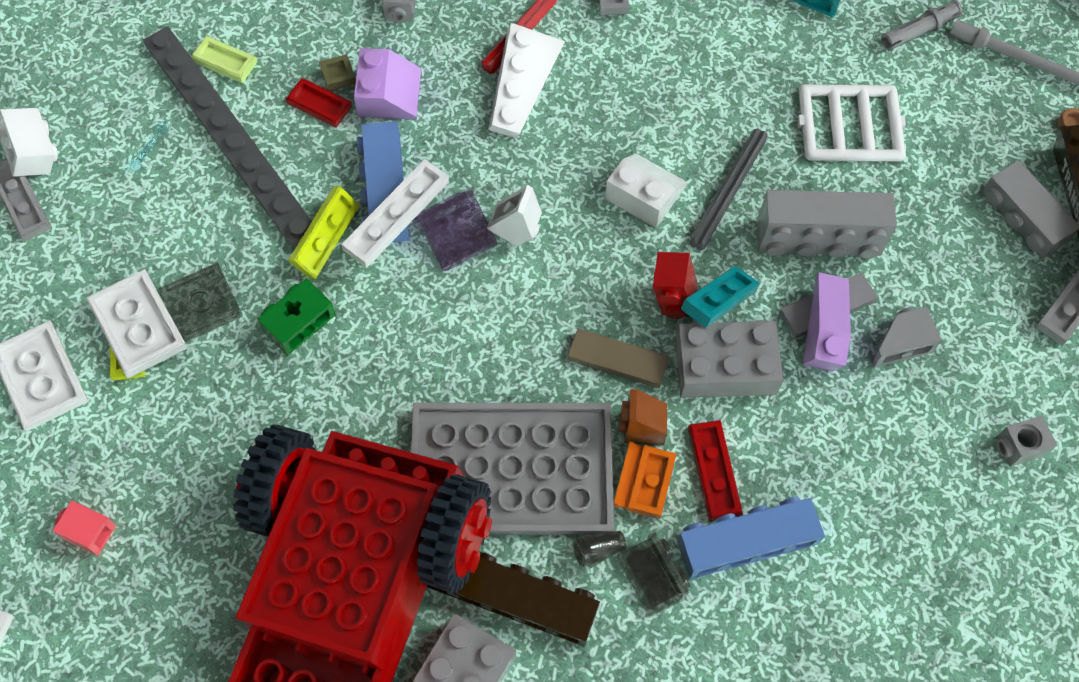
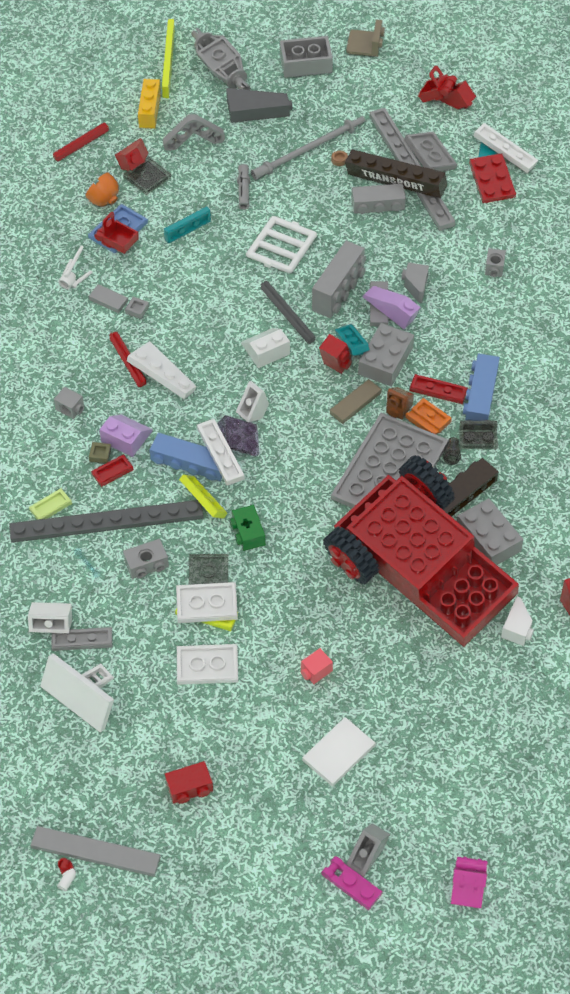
camera: 60 degrees left, 10 degrees down
(172, 197) = (150, 551): none -> light grey brick

